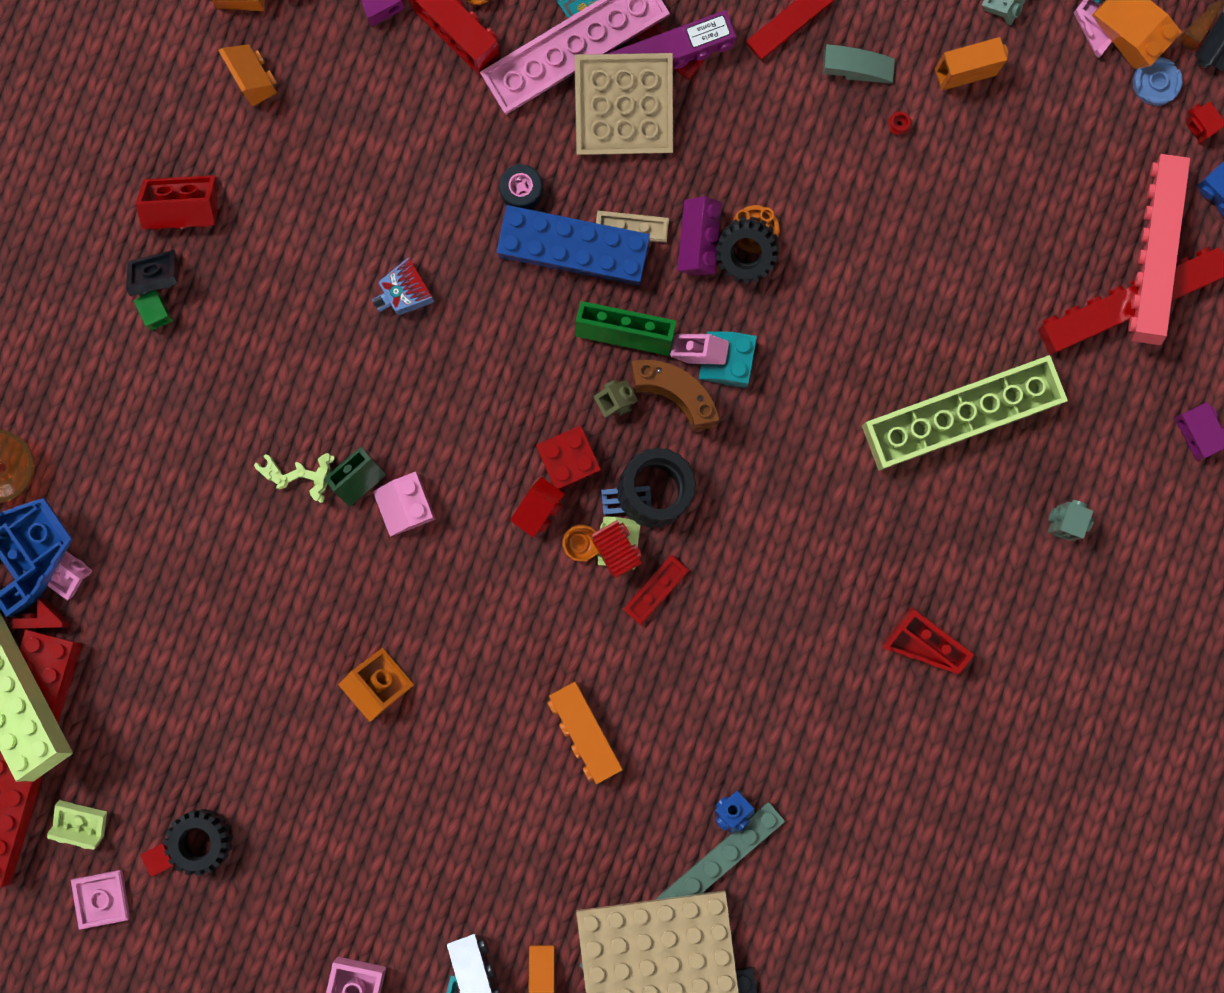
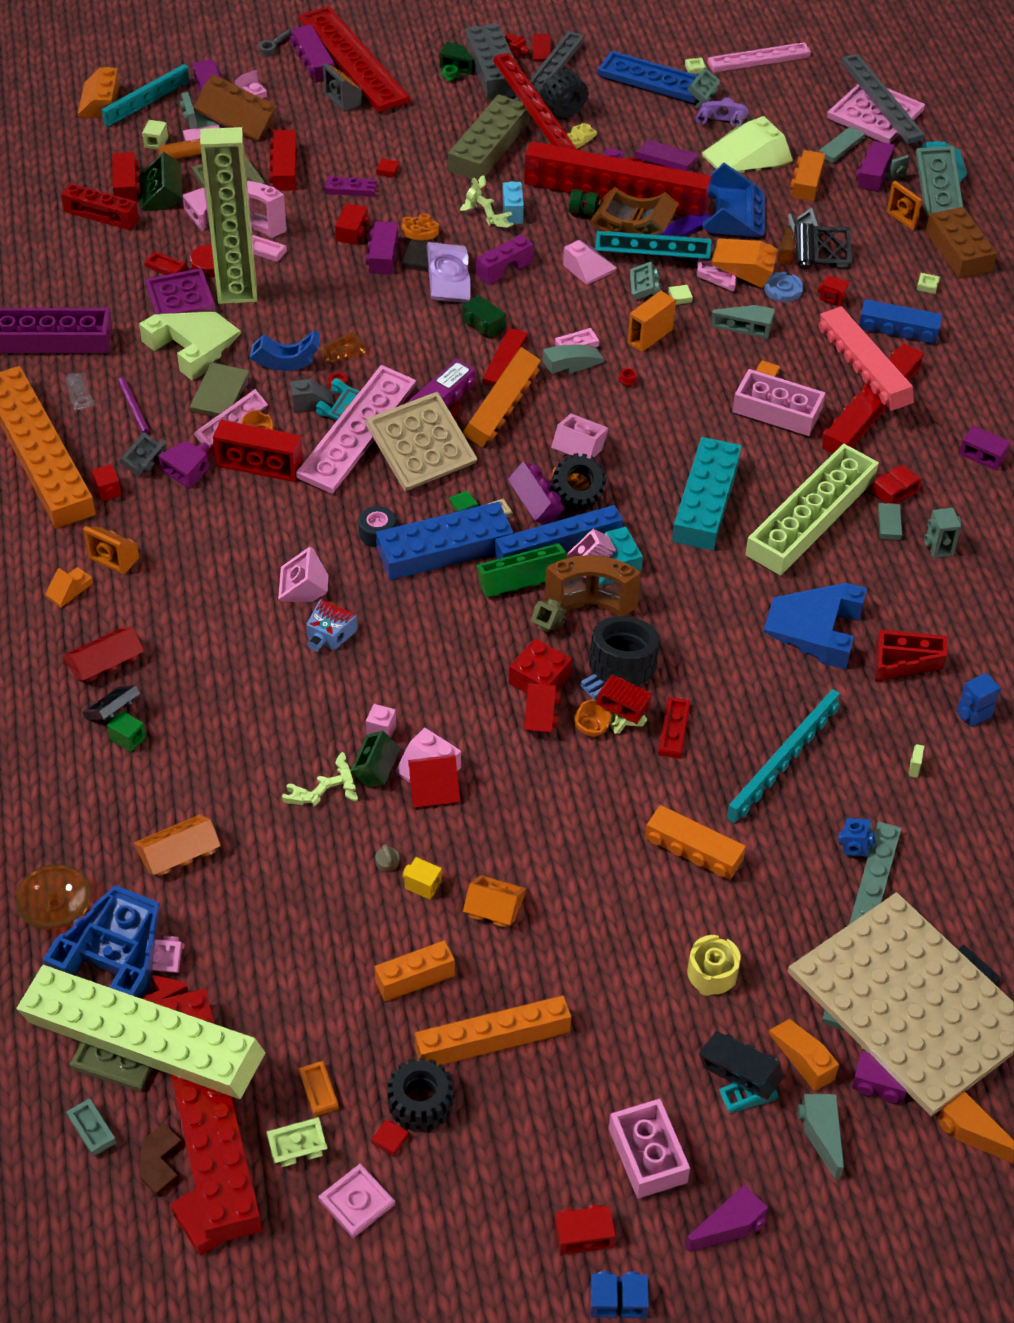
camera: 30 degrees left, 35 degrees down
(126, 779) = (318, 1088): none -> orange tile
(133, 464) = (177, 845): none -> orange slope
(190, 96) = (67, 586): none -> orange slope
(263, 719) = (414, 971): none -> orange brick
(292, 817) = (494, 1031): none -> orange brick
(310, 584) = (387, 858): none -> dark tan tile
(325, 625) = (422, 878): none -> yellow brick
(385, 435) = (381, 719): none -> bright pink brick
(392, 532) = (434, 780): none -> red tile
(411, 215) = (303, 578): none -> bright pink slope
(506, 873) = (713, 965): none -> light yellow brick
(626, 200) = (462, 501): none -> green tile
(688, 304) = (565, 532): none -> blue brick
(723, 689) = (780, 760): none -> teal plate
(748, 82) = (501, 397): none -> orange brick
(788, 188) = (579, 436): none -> bright pink brick
(850, 761) = (916, 760): none -> yellowish green tile
(864, 541) = (809, 620): none -> blue wedge
(873, 329) = (706, 493): none -> teal brick
(879, 41) = (583, 337): none -> bright pink plate
(953, 736) = (978, 699): none -> blue piece
(1028, 252) = (778, 402): none -> bright pink brick
(1035, 465) = (889, 521): none -> sand green tile
(1036, 31) = (681, 294): none -> yellowish green tile
(1052, 195) = (768, 368): none -> orange tile
(1073, 428) = (896, 485): none -> red brick
(1082, 114) = (747, 320): none -> sand green slope

